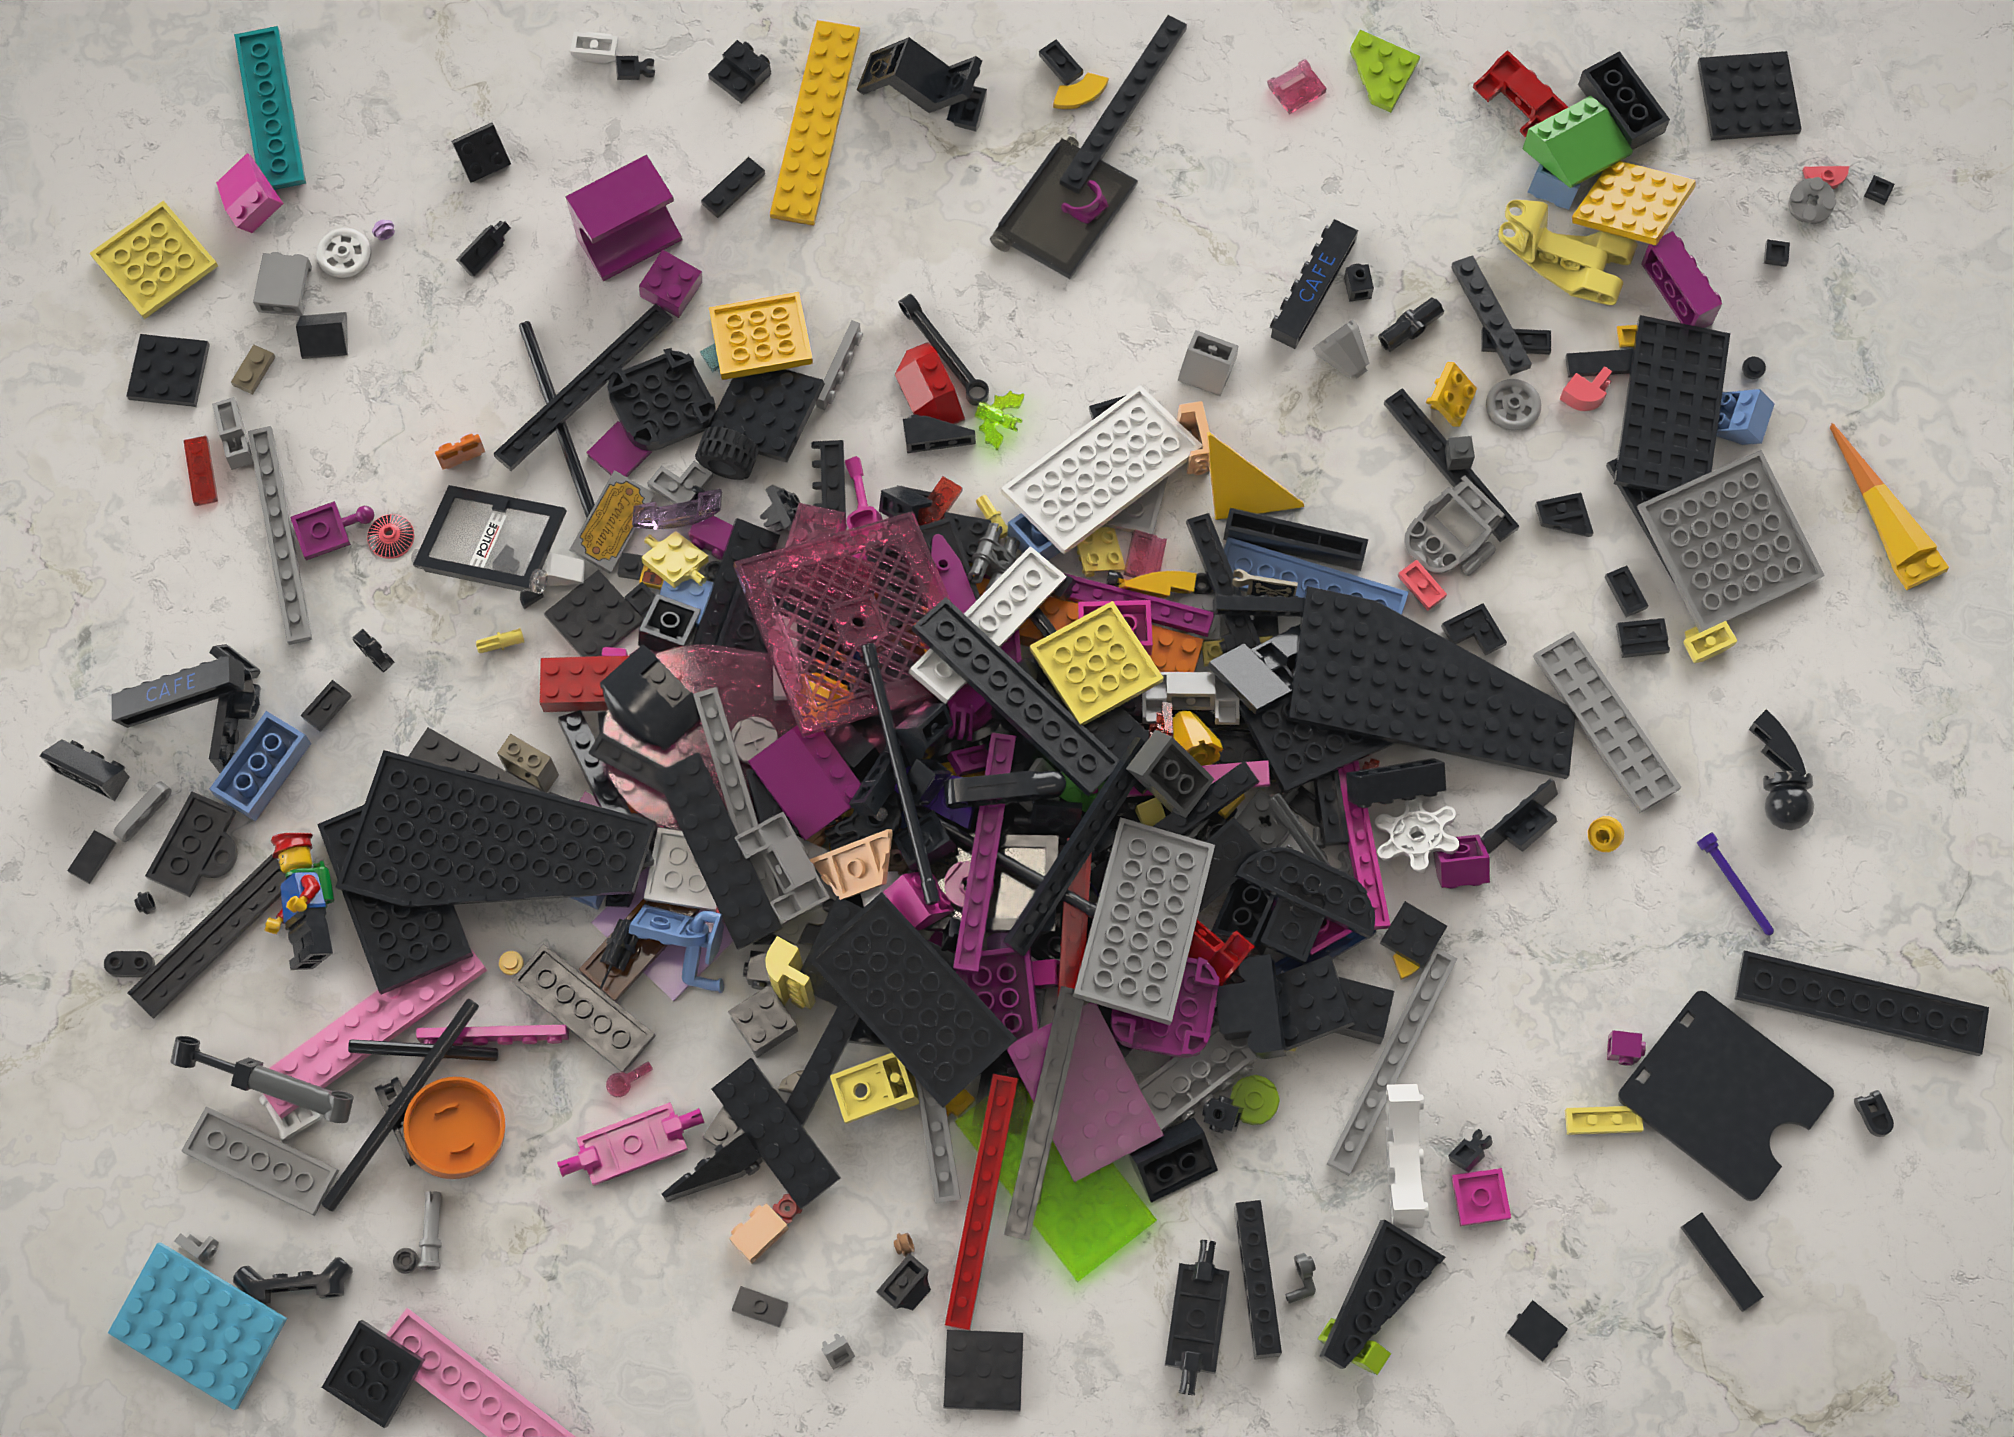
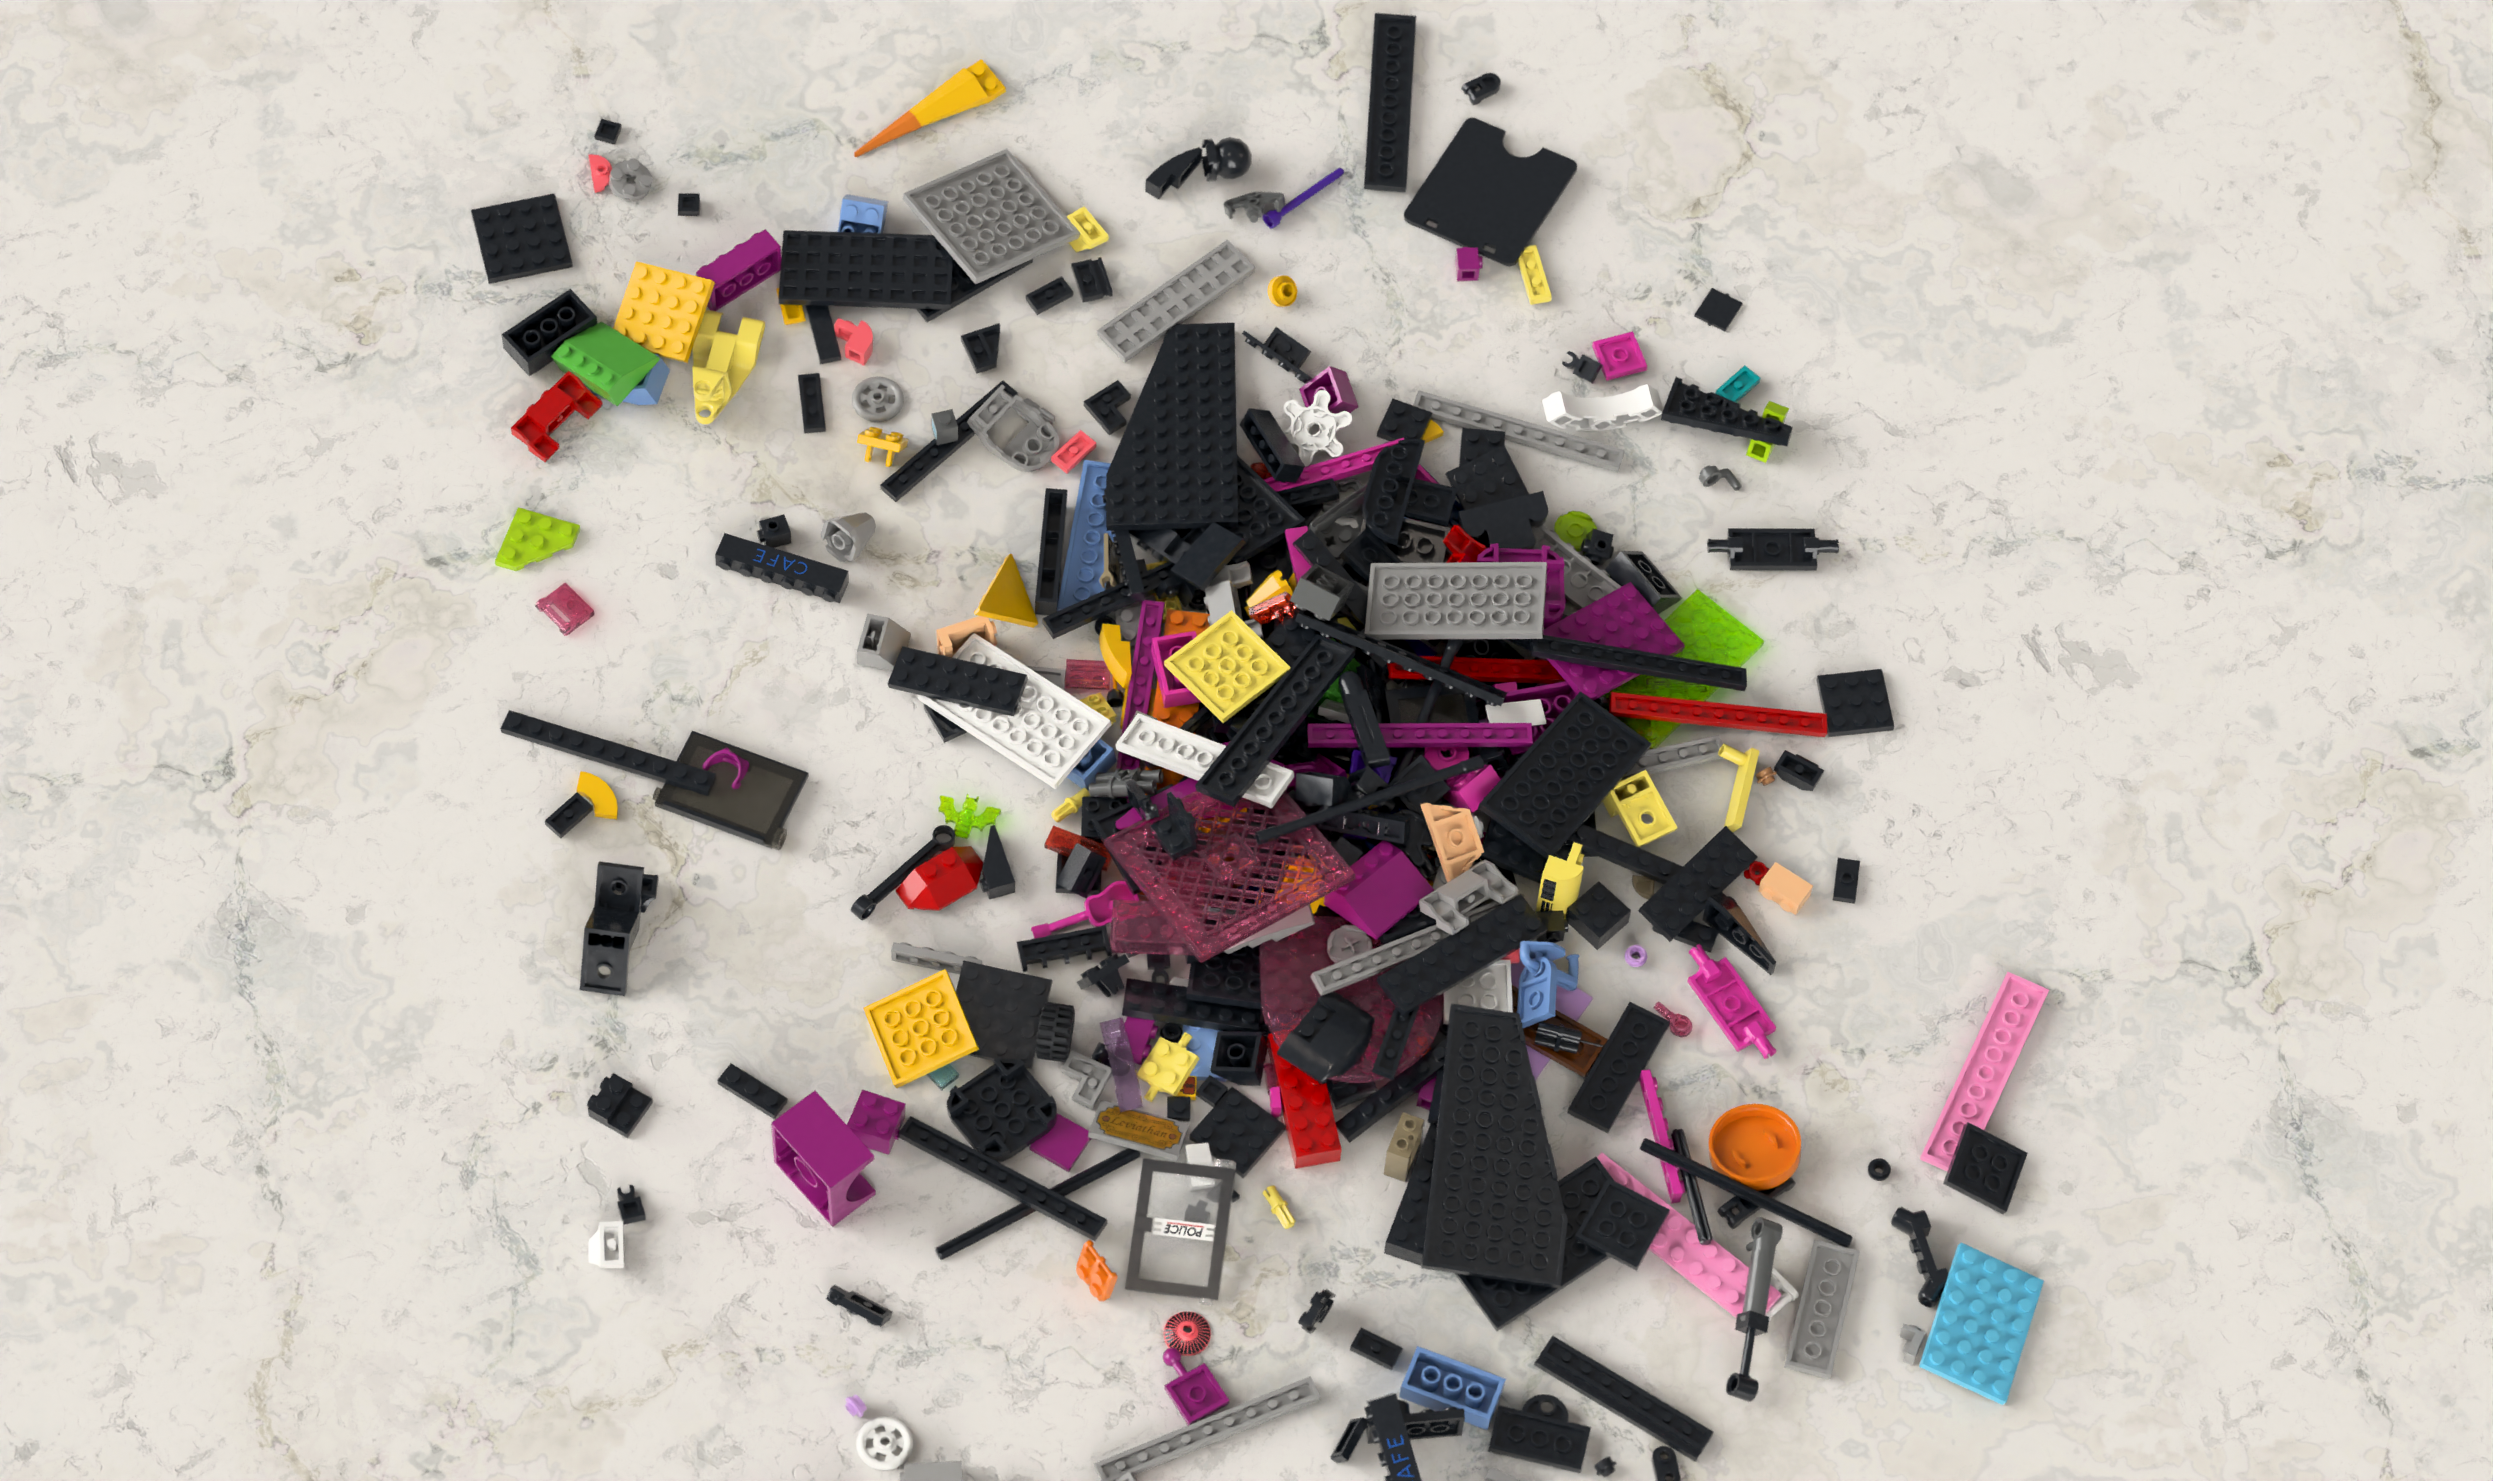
camera: 105 degrees left, 10 degrees down
(303, 900) = (1580, 1316): piece -> none
(322, 335) = (980, 1441): black slope -> none
(385, 961) = (1622, 1224): none -> black plate
(430, 1243) = (1858, 1151): light grey pin -> none
(481, 152) = (756, 1325): black plate -> none
(511, 962) = (1590, 1136): yellow plate -> none
(711, 1047) = (1635, 950): none -> lavender plate
(815, 123) = (666, 1028): yellow plate -> none
(838, 1351) = (1870, 811): light grey tile -> none
(898, 572) = (1177, 830): none -> black bracket
(919, 1224) = (1742, 785): none -> light yellow piece
(950, 553) = (1140, 801): none -> black hinge
(999, 966) = (1517, 712): none -> white sticker
(1144, 420) = (957, 681): none -> black plate
(1257, 1279) = (1729, 507): black brick -> none
(1411, 324) = (811, 485): black piece -> none
(1424, 1327) = (1739, 384): none -> teal plate
(1491, 315) = (791, 421): black plate -> none
(1722, 1262) = (1630, 186): black tile -> none
(1727, 823) = (1254, 204): none -> dark grey piece
(1753, 367) = (809, 215): black plate -> none

